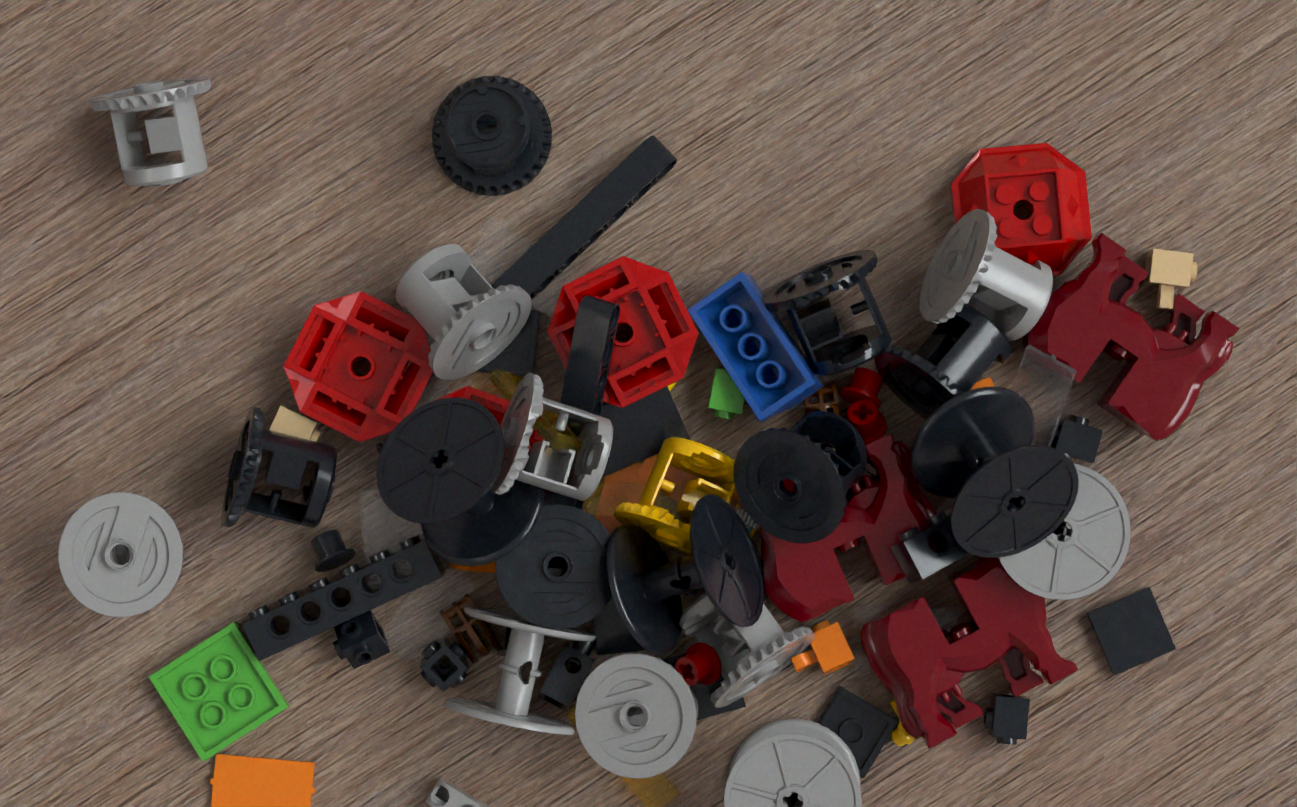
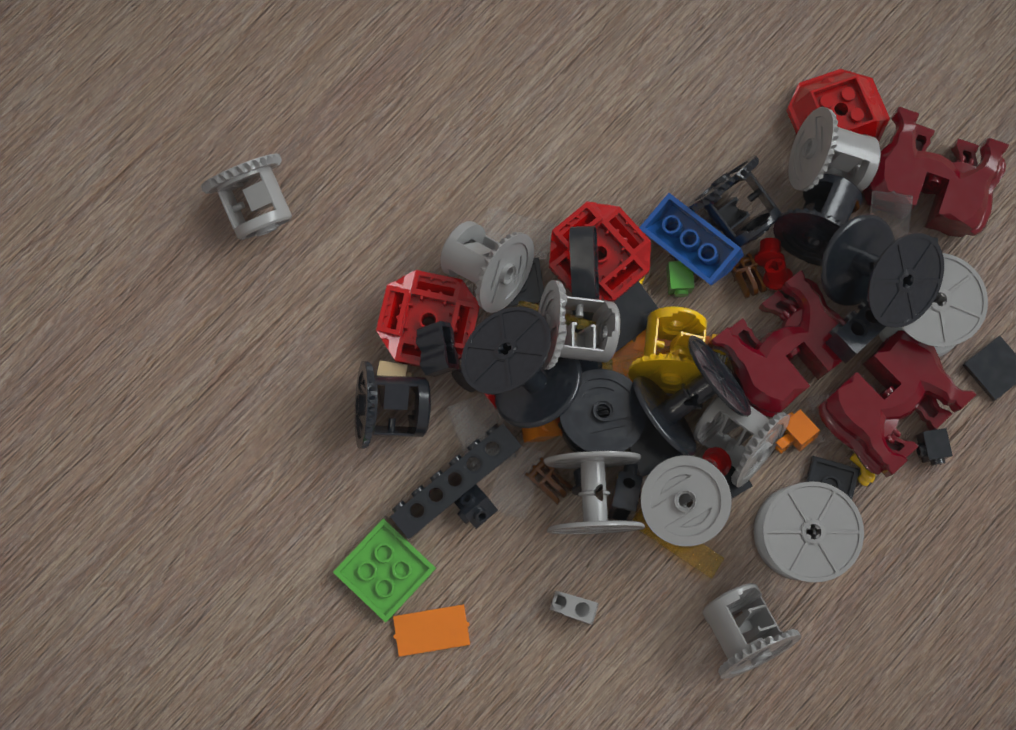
camera: 20 degrees left, 10 degrees down
(120, 554) = (290, 465): light grey piece -> none
(331, 551) = (439, 452): black piece -> none
(359, 416) = (437, 349): none -> black brick
(444, 676) = (547, 508): black brick -> none
(492, 158) = (475, 150): black piece -> none
(590, 218) = (559, 183): black beam -> none
(818, 476) = (749, 311): black piece -> none
(1169, 271) = (947, 128): tan brick -> none

